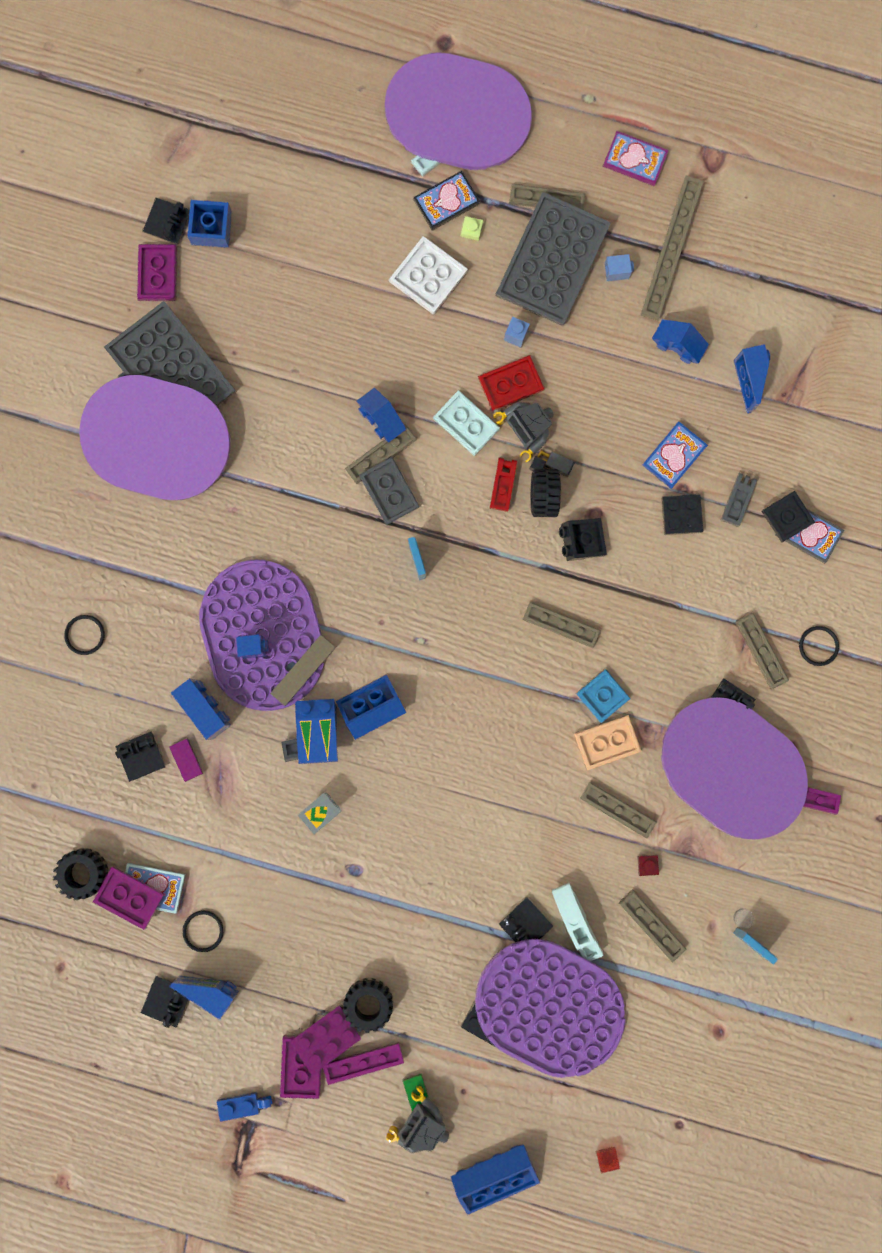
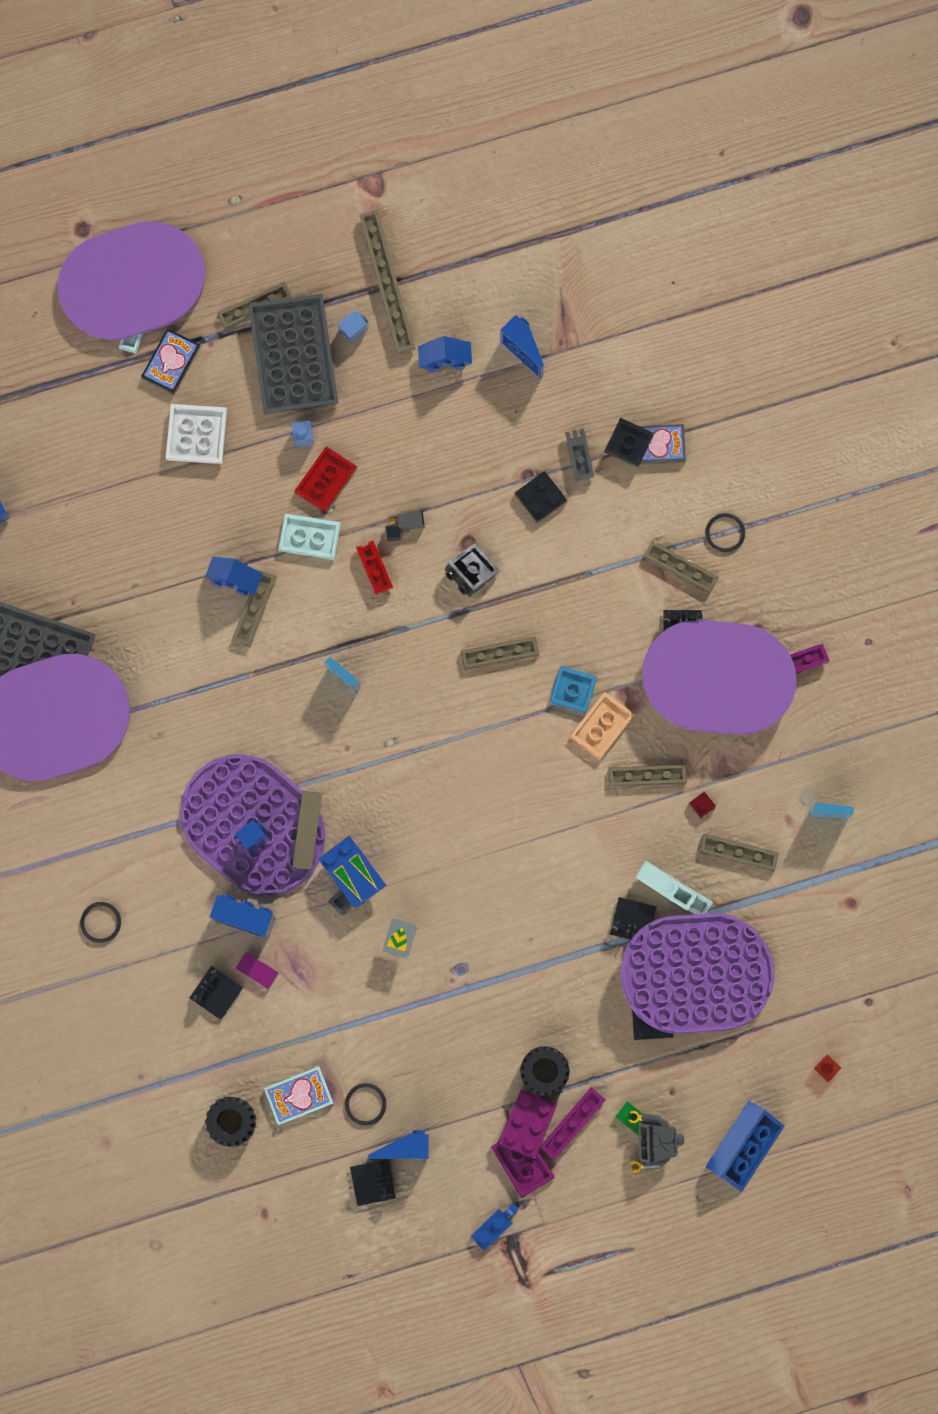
camera: 25 degrees left, 5 degrees down
(128, 898) = (284, 1114): magenta plate -> none
(370, 707) = (384, 823): blue slope -> none
(389, 491) = (281, 634): dark grey tile -> none
(471, 228) = (207, 371): yellowish green plate -> none
(529, 424) = (363, 503): dark grey torso -> none
(545, 493) = (414, 551): black tyre -> none
(635, 158) = (307, 226): tile -> none
(674, 455) = (502, 451): tile -> none

